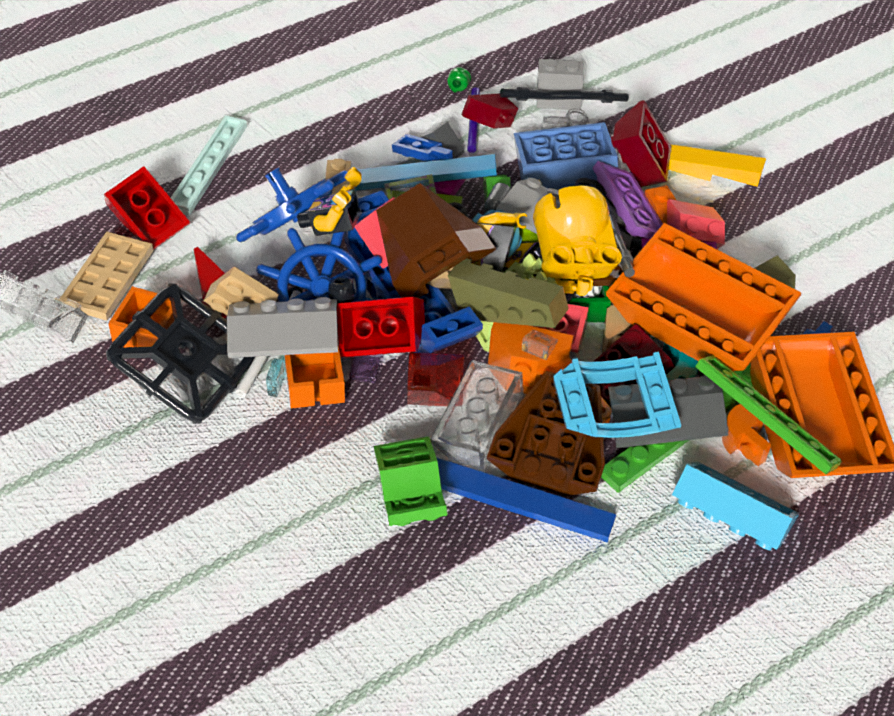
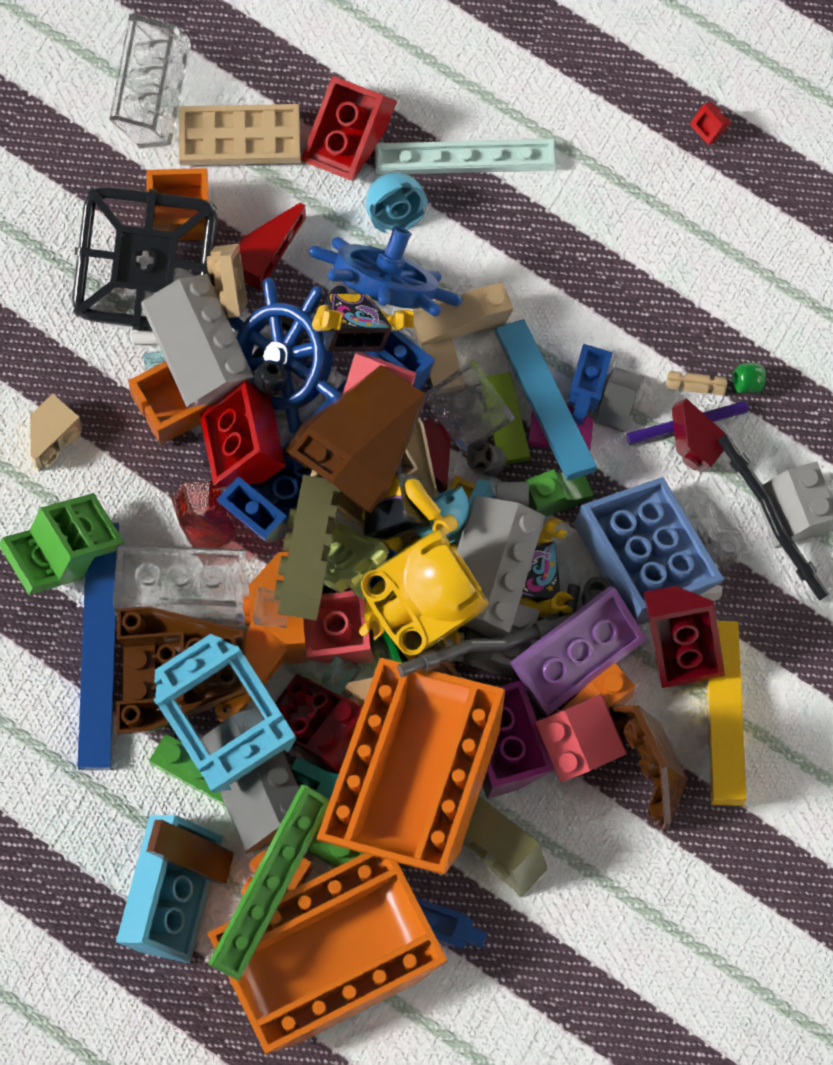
camera: 70 degrees right, 20 degrees up
(222, 202) = (395, 201): none -> medium azure cylinder
(263, 42) = (710, 123): none -> red tile
(296, 467) = (50, 430): none -> tan slope
(447, 106) = (696, 383): none -> tan axle
(594, 342) = (340, 674): none -> clear light blue tile
(716, 469) = (190, 851): none -> reddish brown tile
(731, 180) = (657, 760): none -> reddish brown wedge

